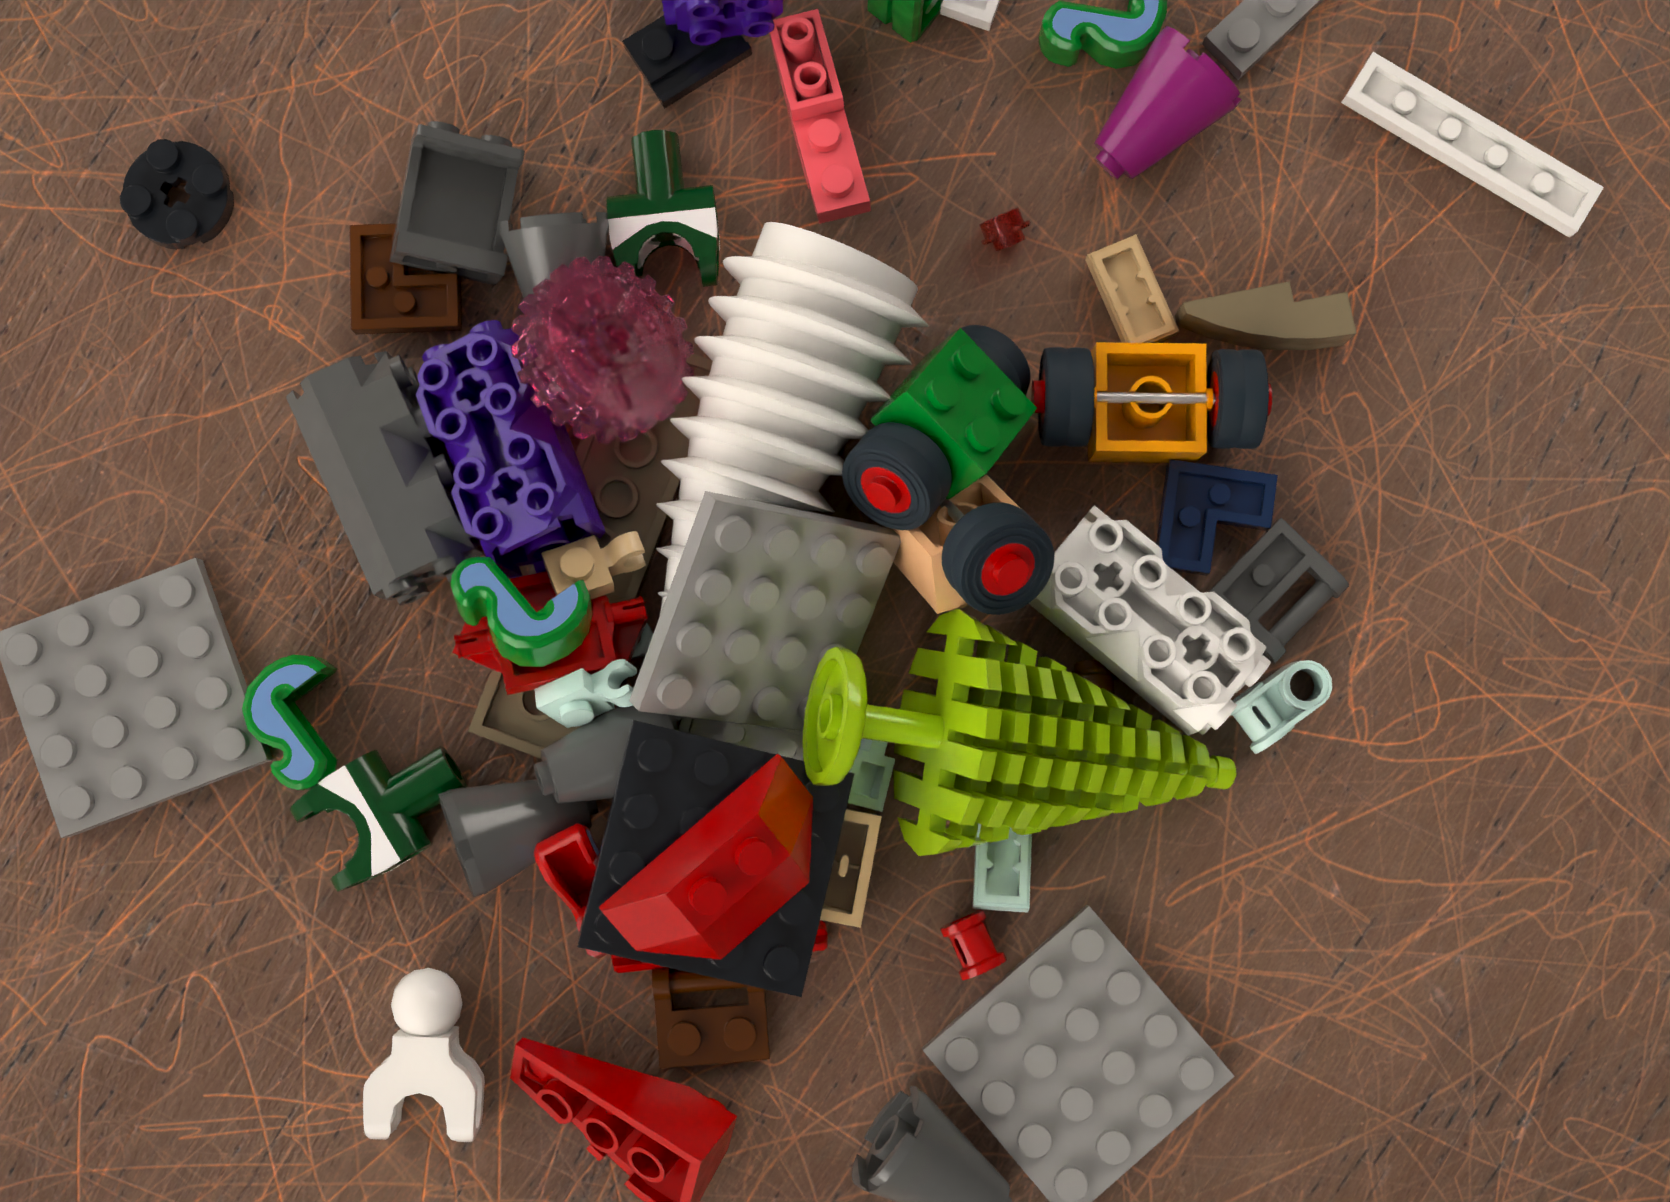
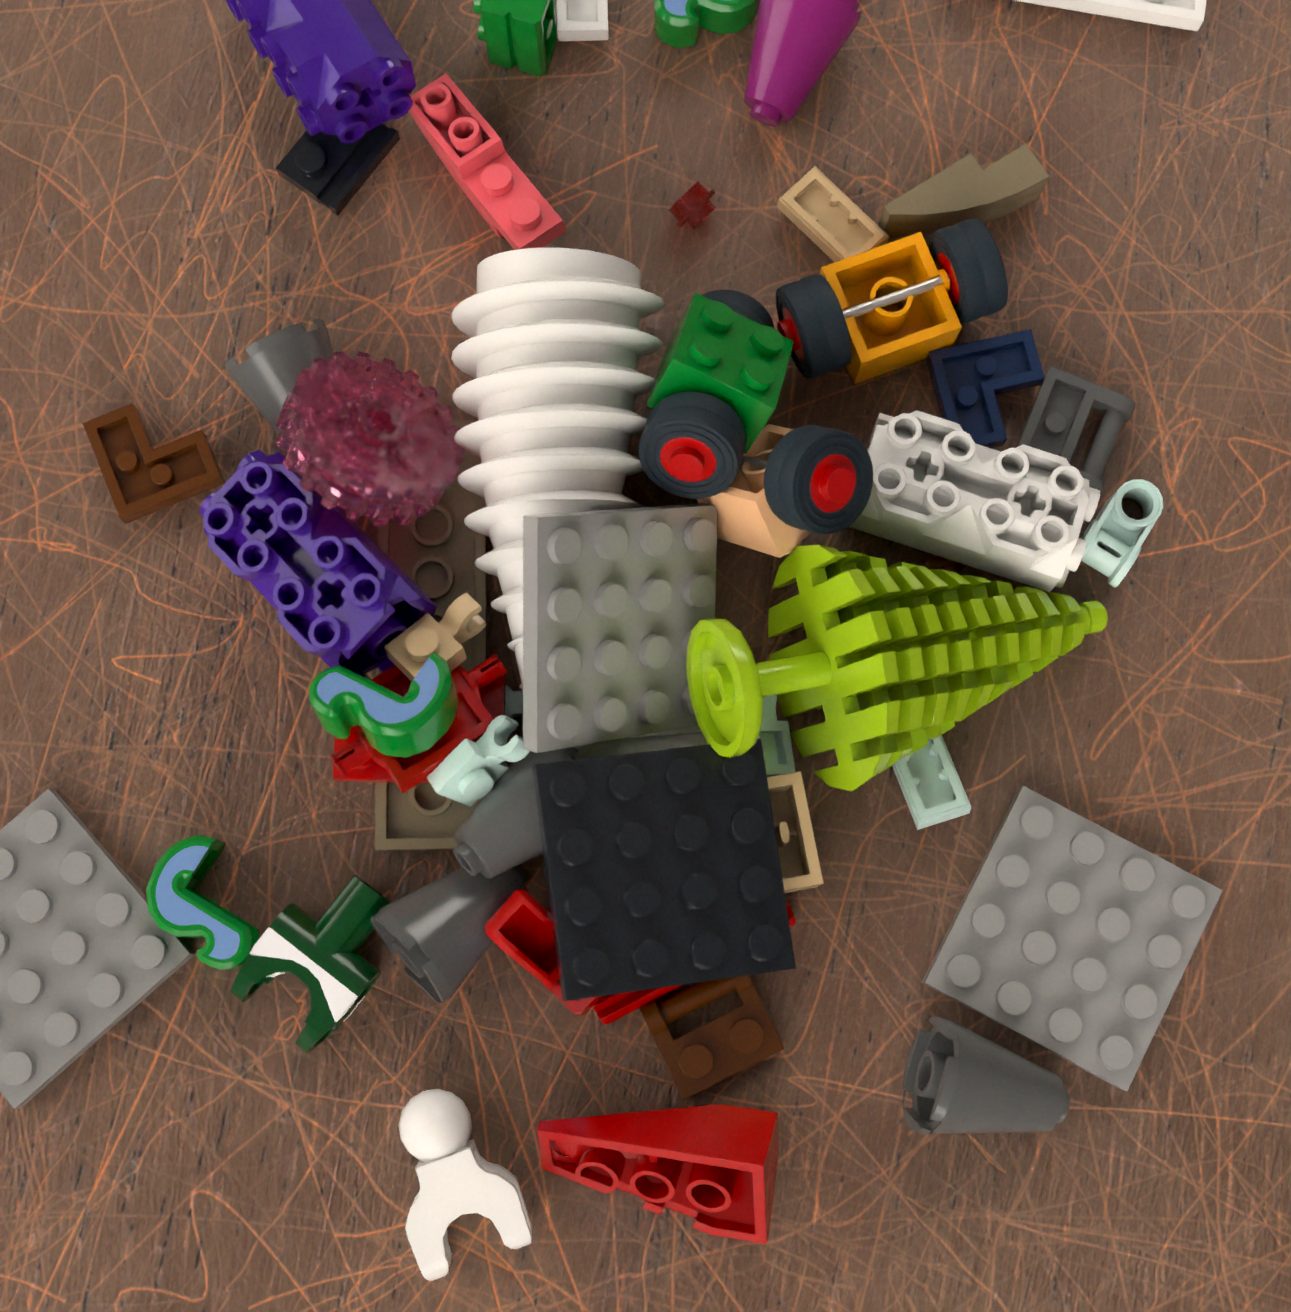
camera: 25 degrees left, 5 degrees down
(384, 474) = (205, 636): dark grey brick -> none
(454, 202) = (175, 365): dark grey panel -> none
(664, 210) = (374, 303): dark green connector -> none
(722, 872) = (676, 874): red wedge -> none
(973, 945) = (931, 864): red bush -> none

